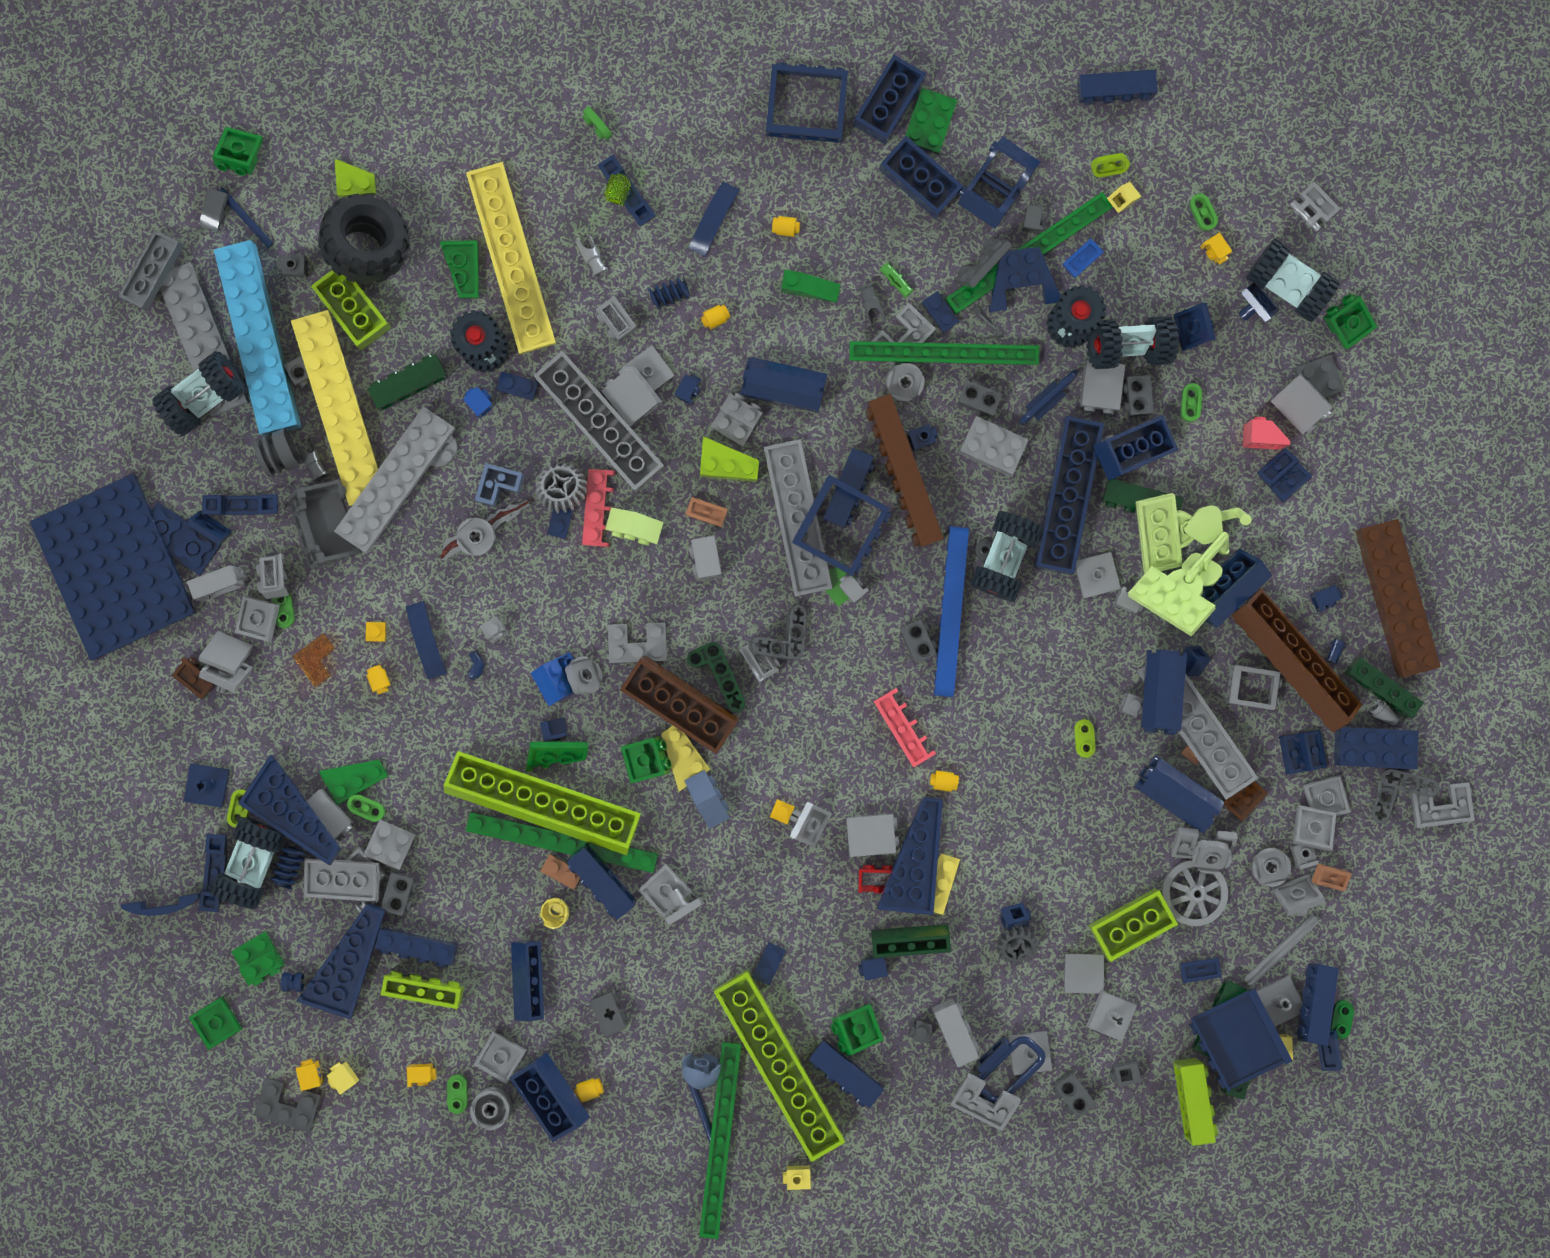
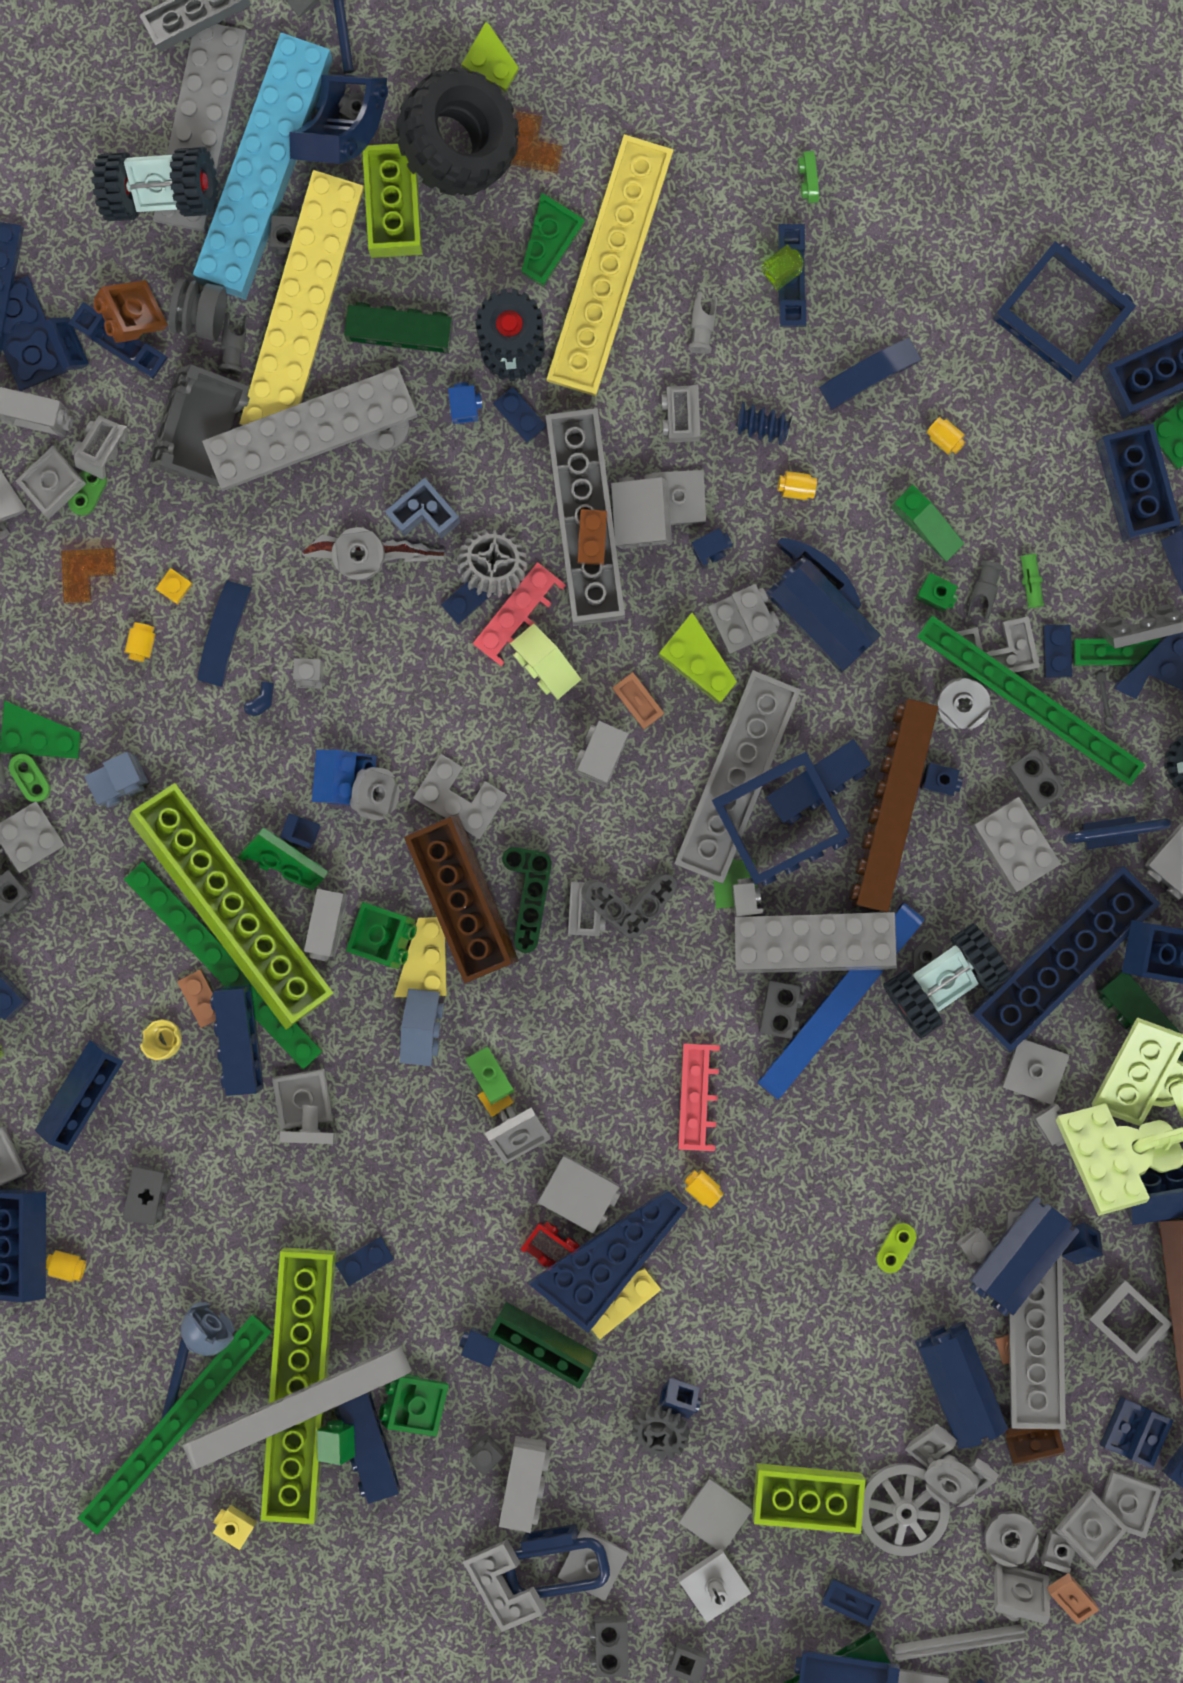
camera: 35 degrees right, 0 degrees up
(234, 481) = (129, 310): none -> dark orange plate
(289, 293) = (336, 139): none -> dark blue window
(416, 220) = (532, 152): none -> clear orange plate
(420, 773) = (116, 779): none -> sand blue brick
(607, 775) = (325, 924): none -> light grey brick
(612, 431) = (592, 537): none -> dark orange plate
(740, 356) = (796, 549): none -> dark blue slope
(769, 800) = (489, 1075): none -> bright green plate
(787, 1078) = (296, 1407): none -> light grey beam
(825, 1084) = (335, 1442): none -> green brick
(844, 325) = (937, 593): none -> green brick
(912, 586) = (816, 943): none -> light grey brick

